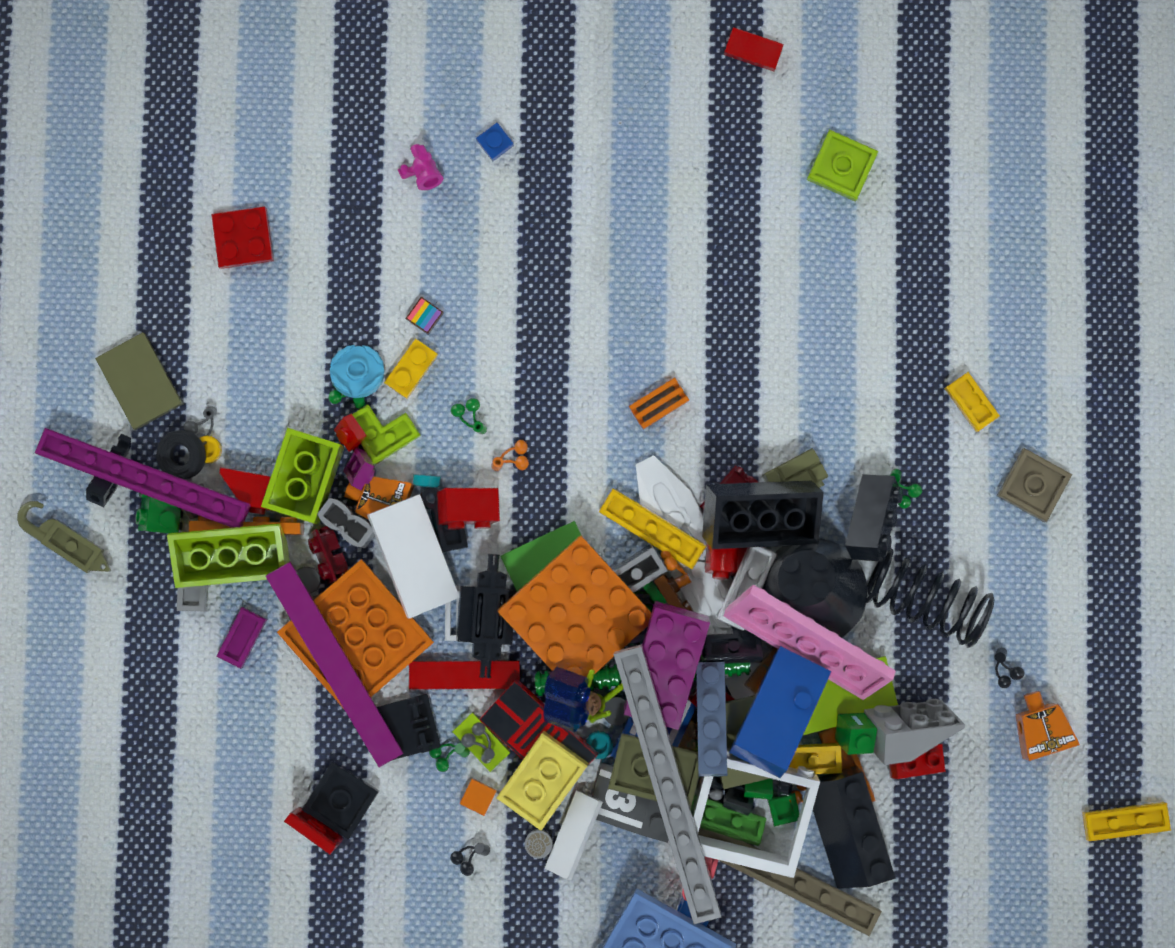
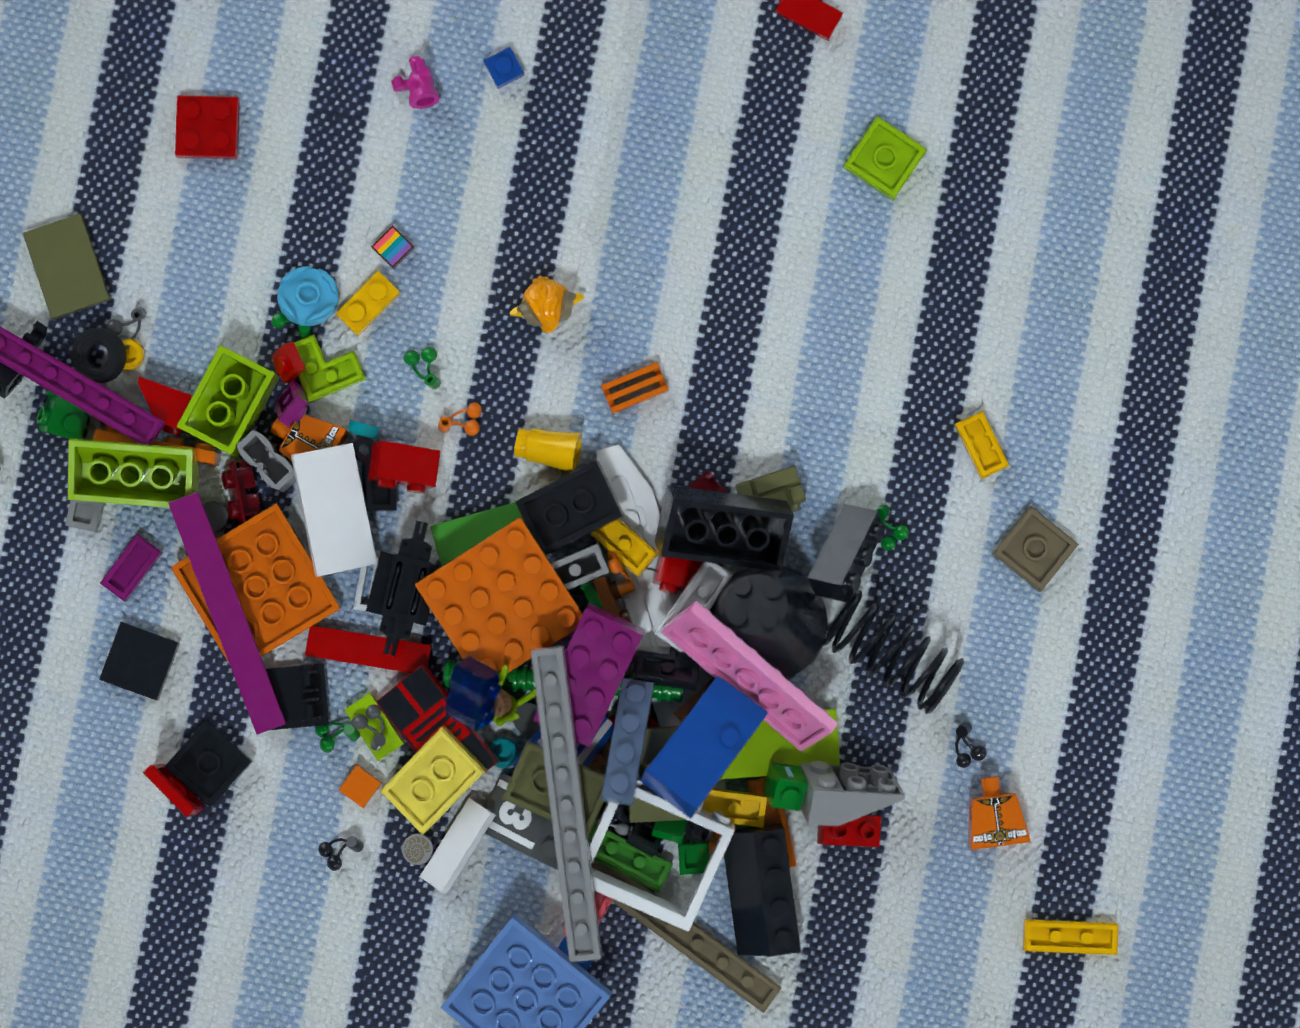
camera: 15 degrees right, 0 degrees up
(263, 719) = (139, 661): none -> black tile
(569, 342) = (546, 304): none -> light orange hair
(594, 469) = (549, 448): none -> yellow plant
(622, 519) = (570, 508): none -> black plate

